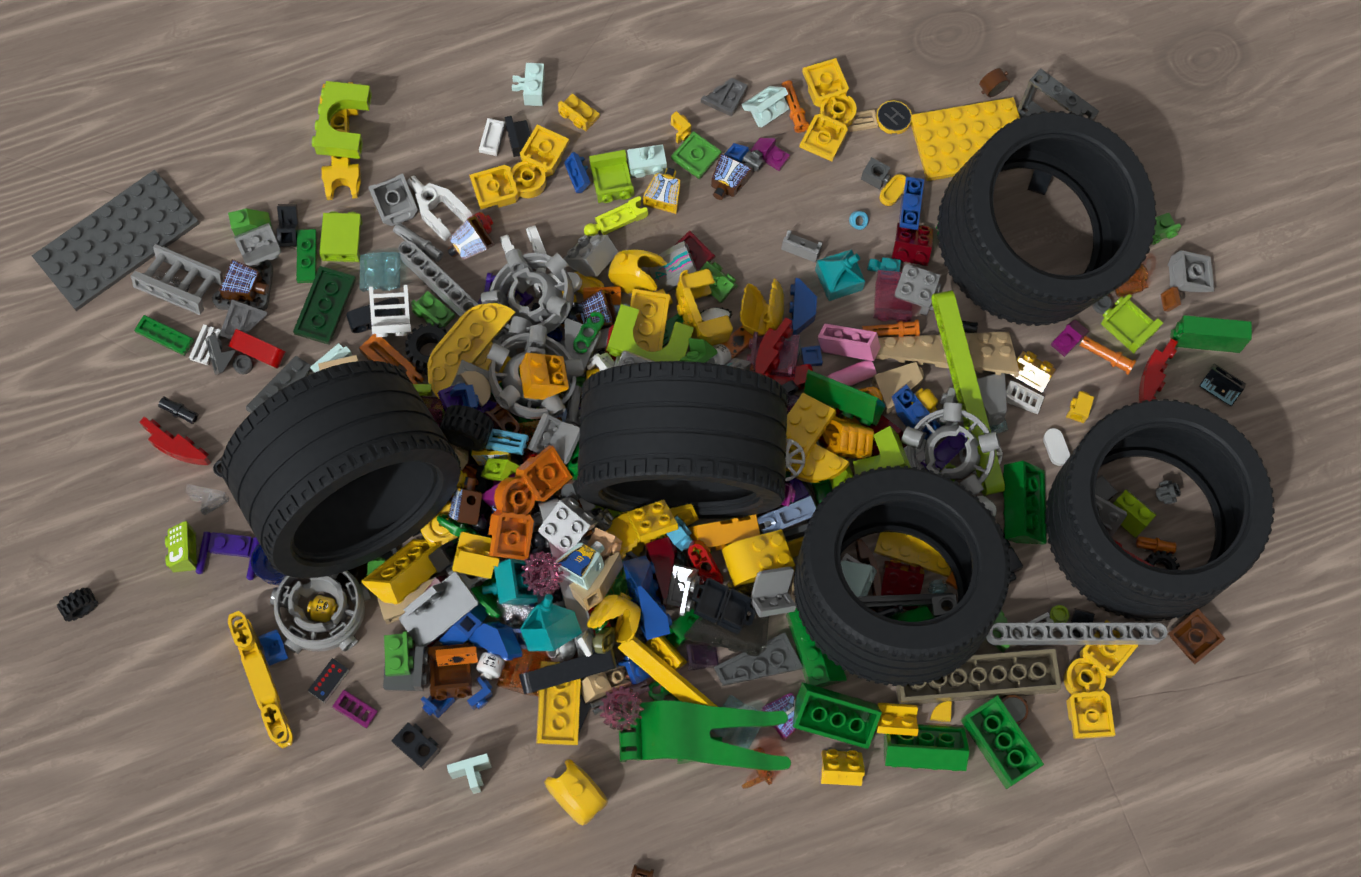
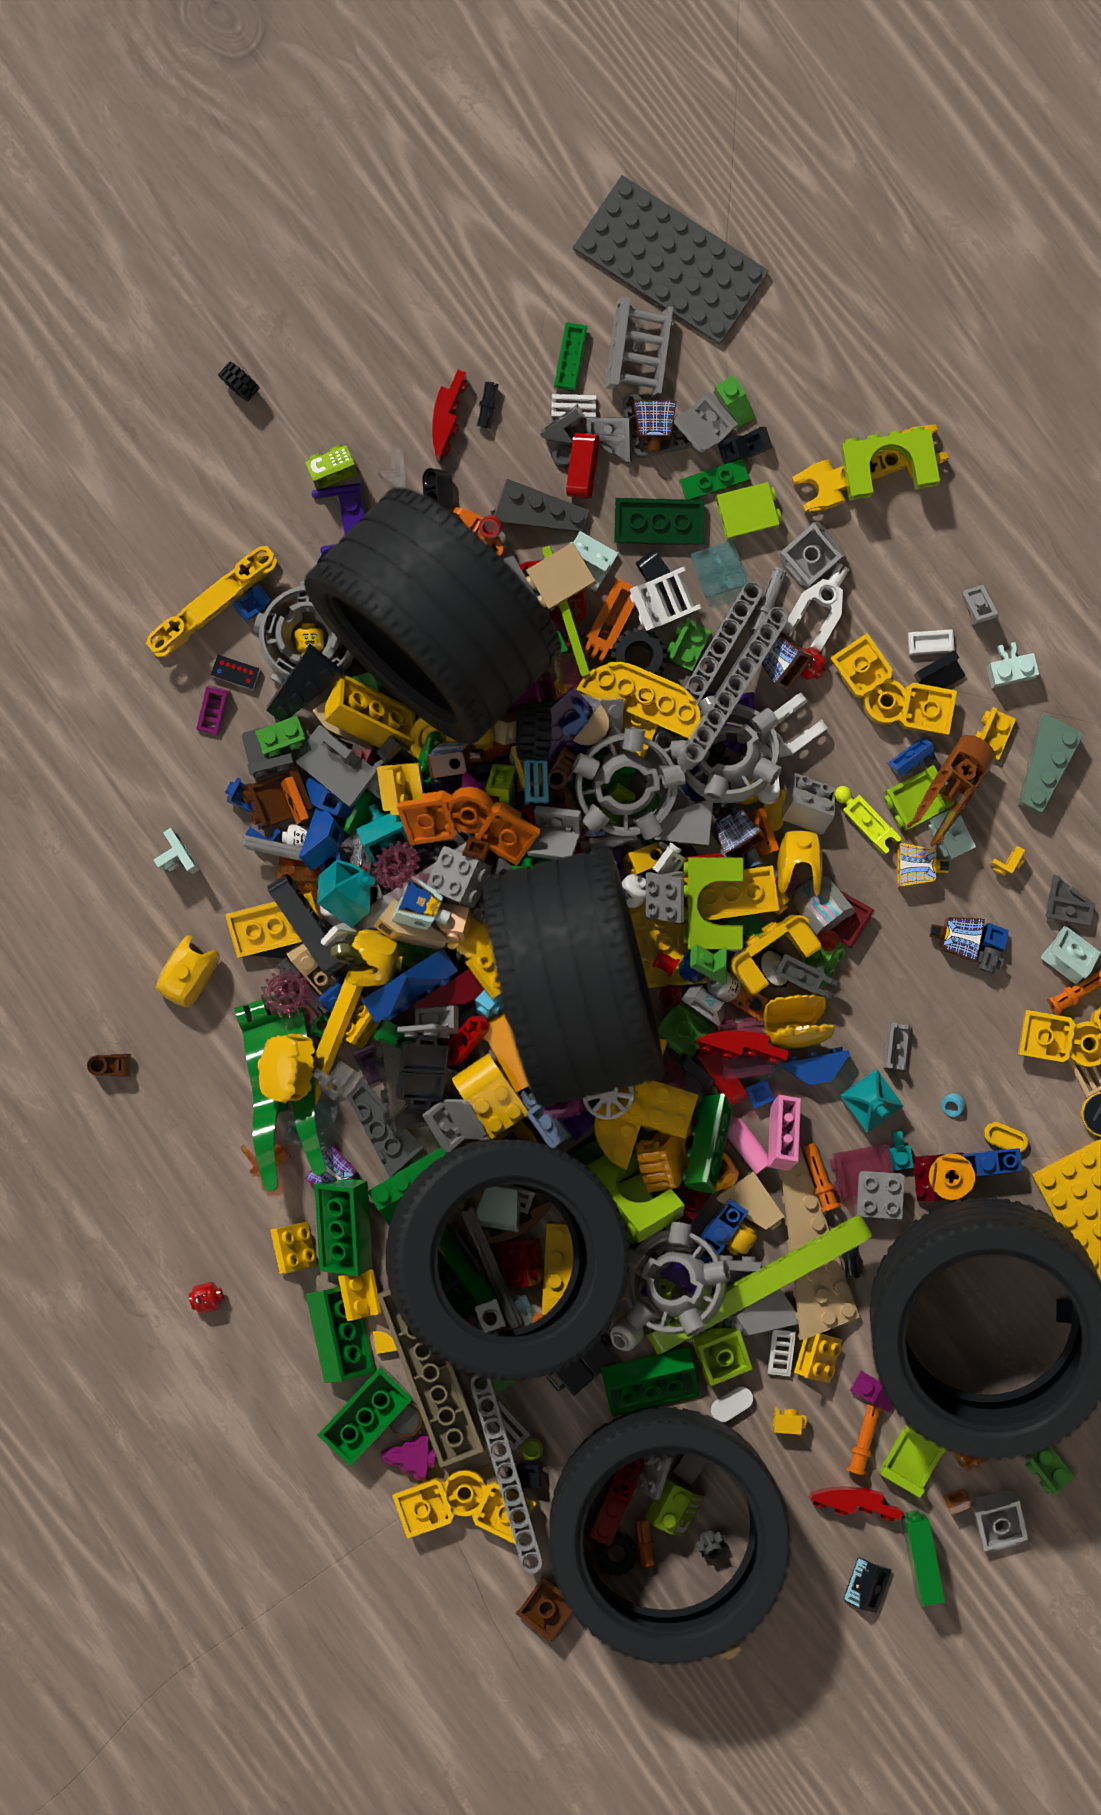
camera: 80 degrees right, 15 degrees up
(357, 610) = (307, 680): none -> black wing
(412, 749) = (184, 785): black brick -> none
(475, 92) = (979, 604): none -> light grey slope
(481, 275) = (726, 694): none -> light grey beam
(492, 684) = (271, 847): none -> light grey axle
(543, 375) = (622, 797): light orange slope -> none
(549, 501) = (477, 849): none -> reddish brown slope
(587, 340) = (692, 824): green piece -> none
(609, 140) = (969, 761): none -> dark orange piece
(613, 79) = (1049, 757): none -> sand green wedge
(687, 720) = (286, 1067): none -> yellow animal
(696, 155) = (978, 890): bright green plate -> none
(704, 263) = (829, 940): none -> clear red plate
(711, 684) = (341, 1083): none -> clear brick
(727, 291) = (804, 975): none -> dark grey hinge
(771, 154) = (1009, 977): magenta slope -> none
(867, 855) = (206, 1297): none -> red head
(876, 166) = (1027, 1106): dark grey brick -> none
(919, 237) = (960, 1186): none -> light orange plate
(1017, 439) = (721, 1354): none -> lime slope
(1046, 714) = (412, 1457): none -> magenta rock

